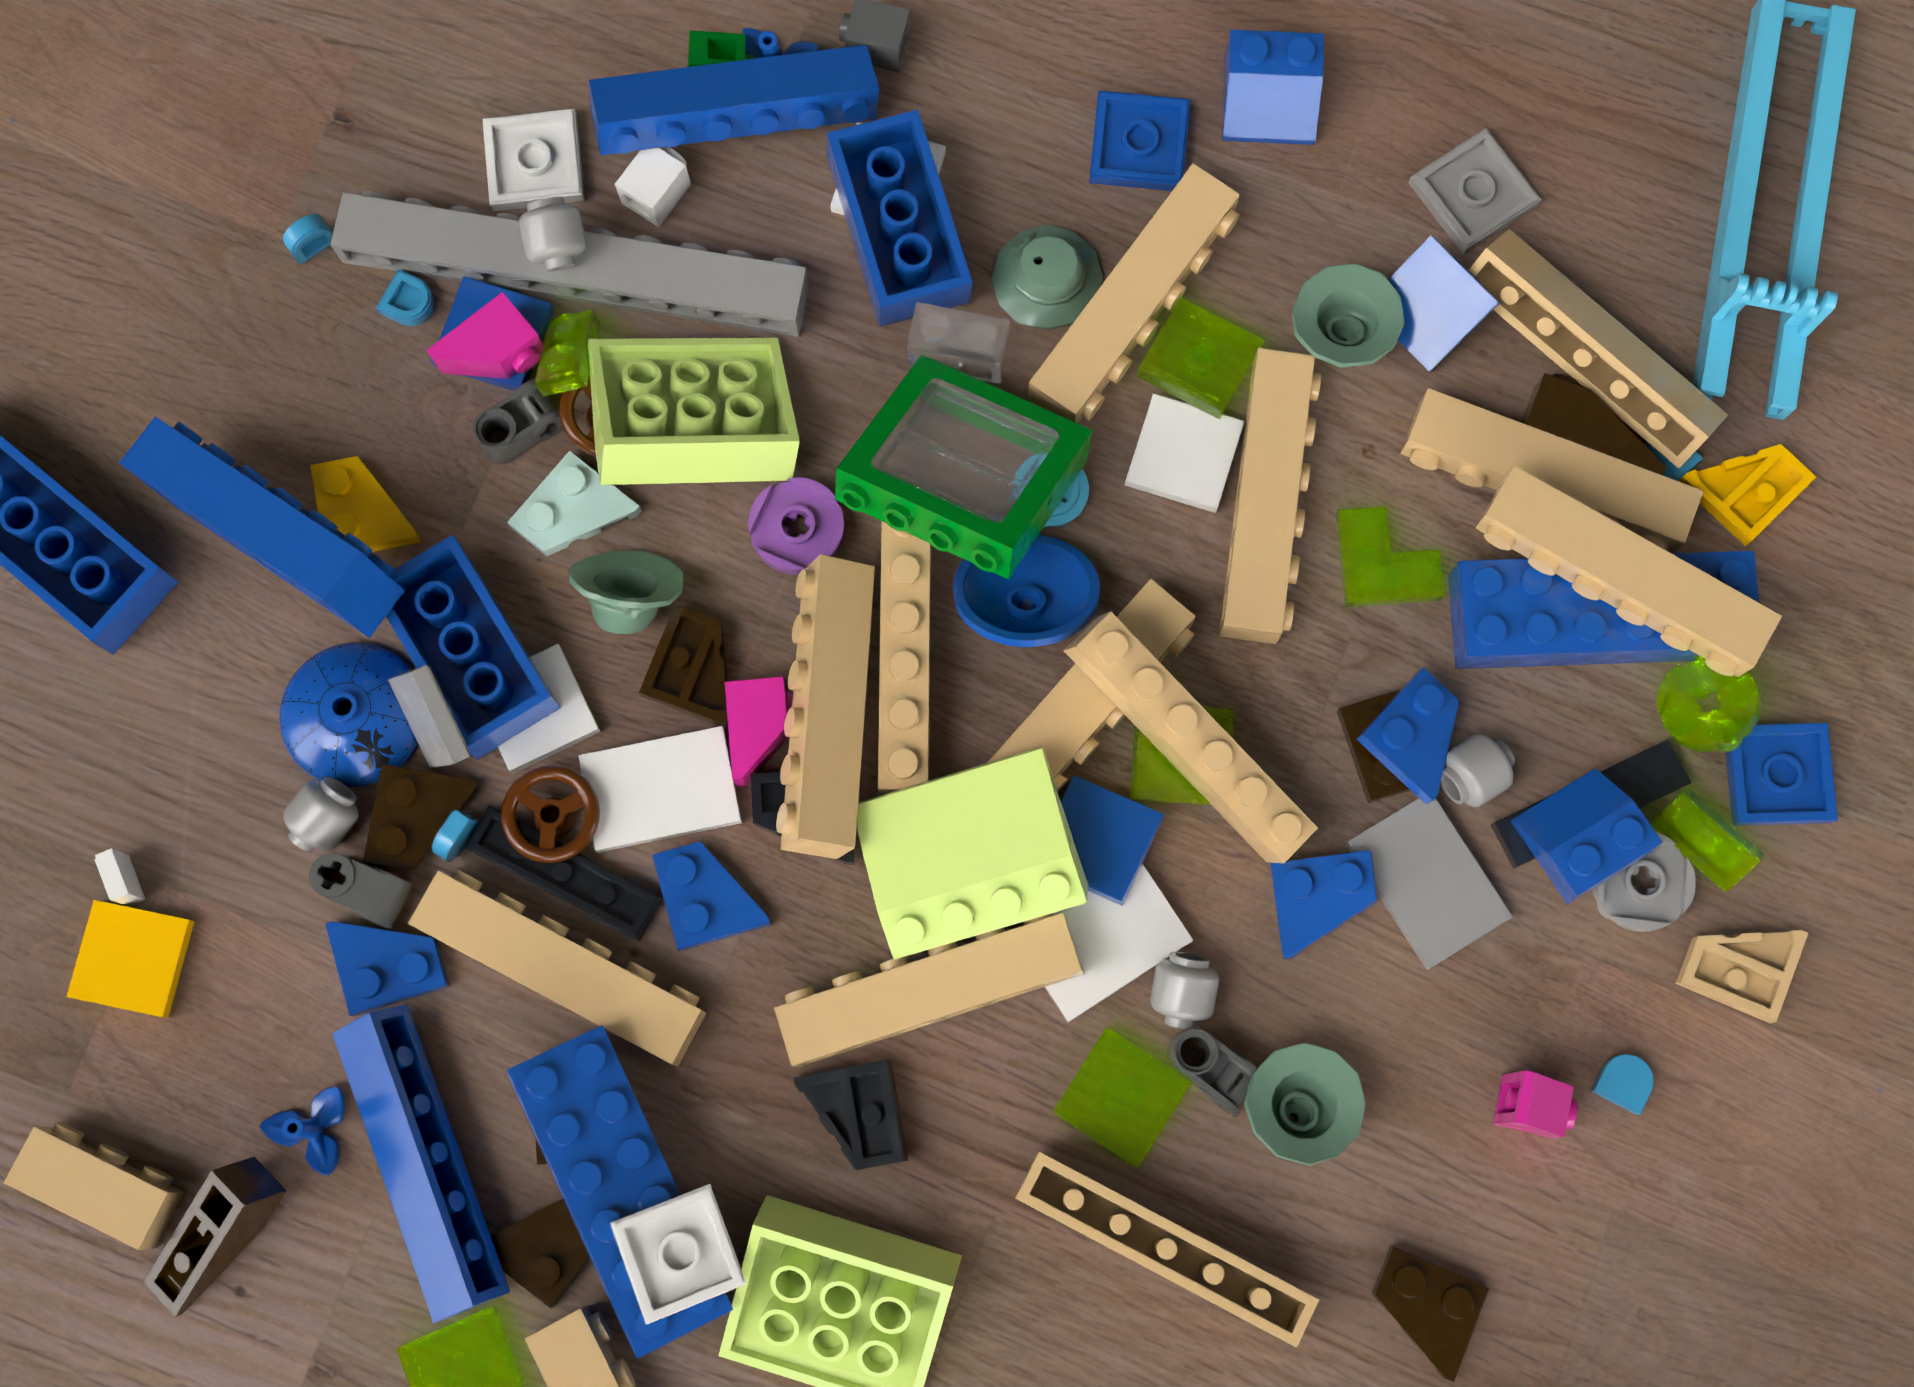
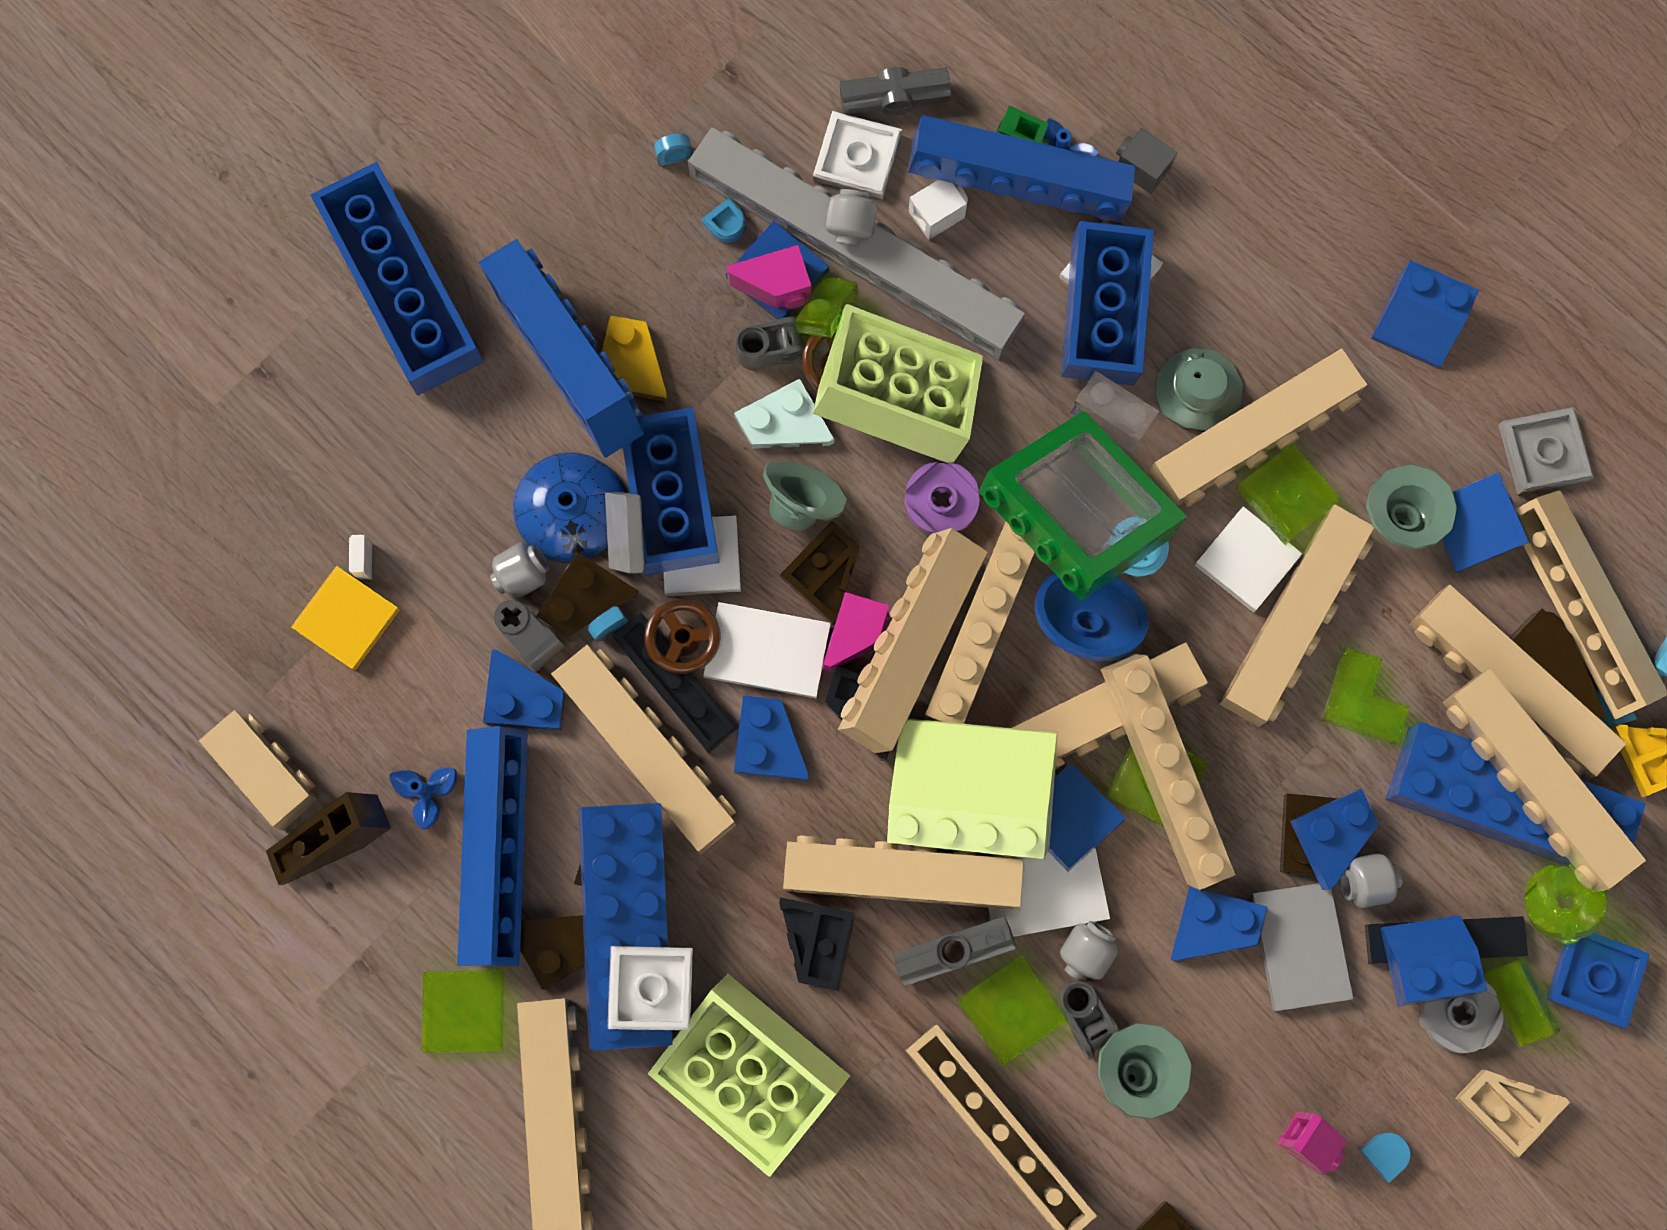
camera: 20 degrees right, 0 degrees up
(548, 66) = (895, 91): none -> dark grey piece
(1003, 1078) = (930, 959): none -> dark grey piece
(1139, 140) = (1308, 314): blue tile -> none

